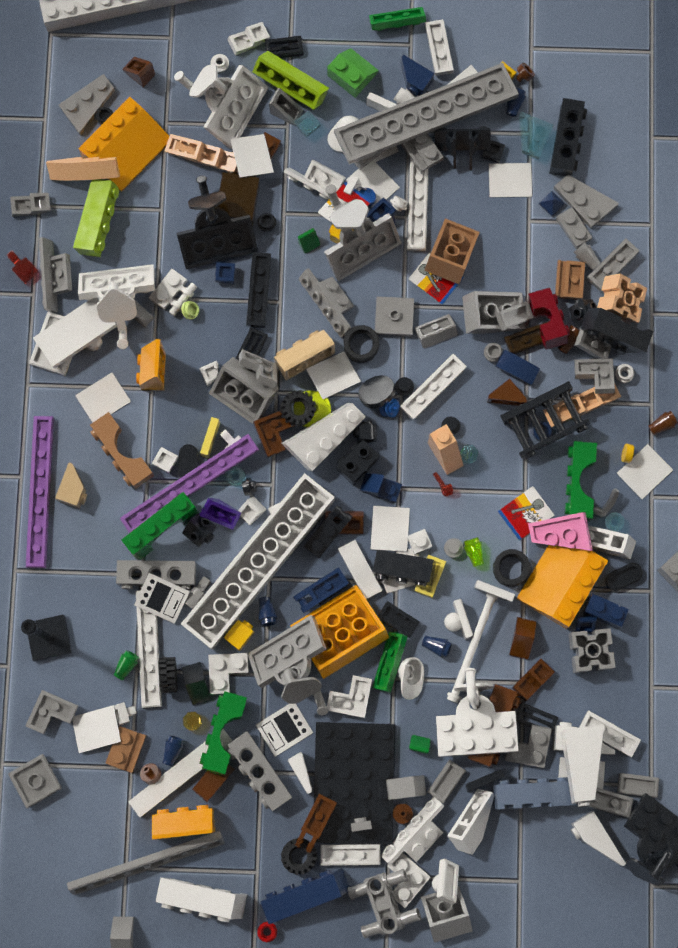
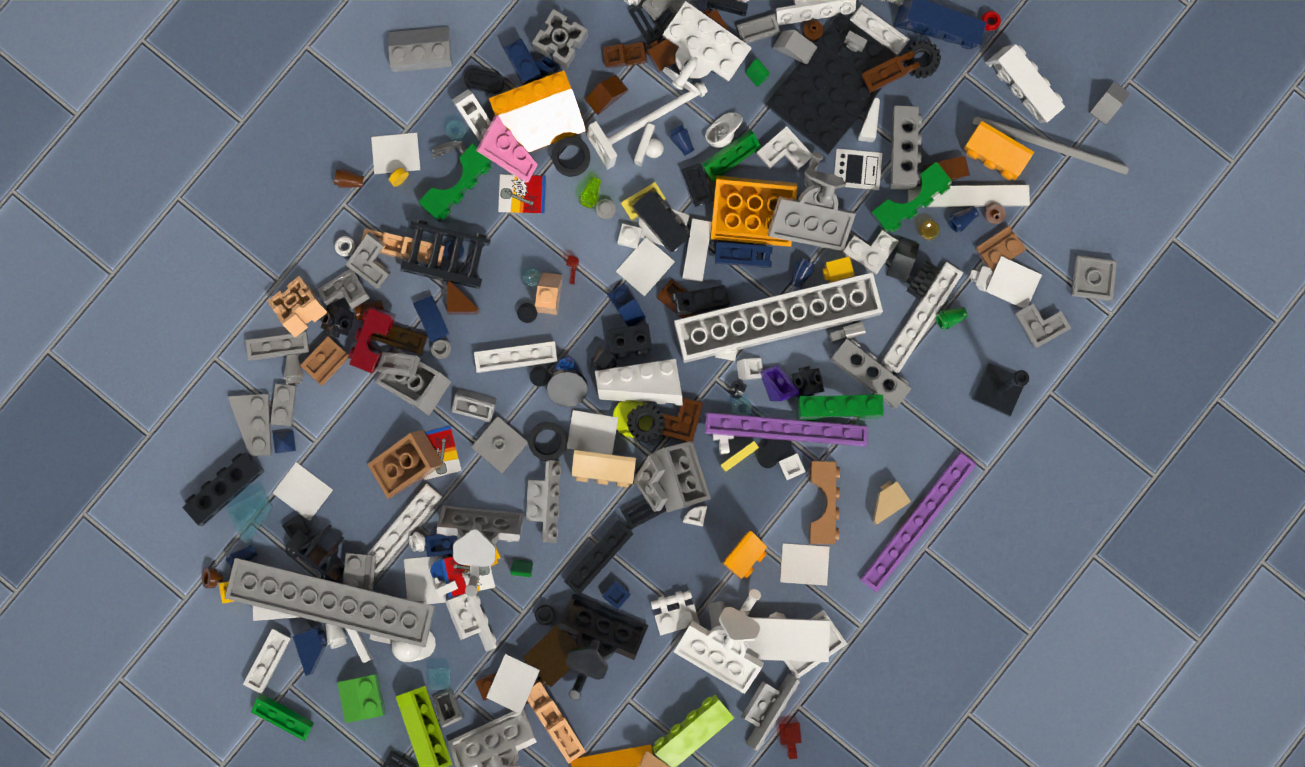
camera: 145 degrees left, 5 degrees up
(161, 598) = (881, 348): white sticker -> none
(190, 310) = (672, 584): yellowish green plate -> none
(615, 333) = (325, 280): black wedge -> none

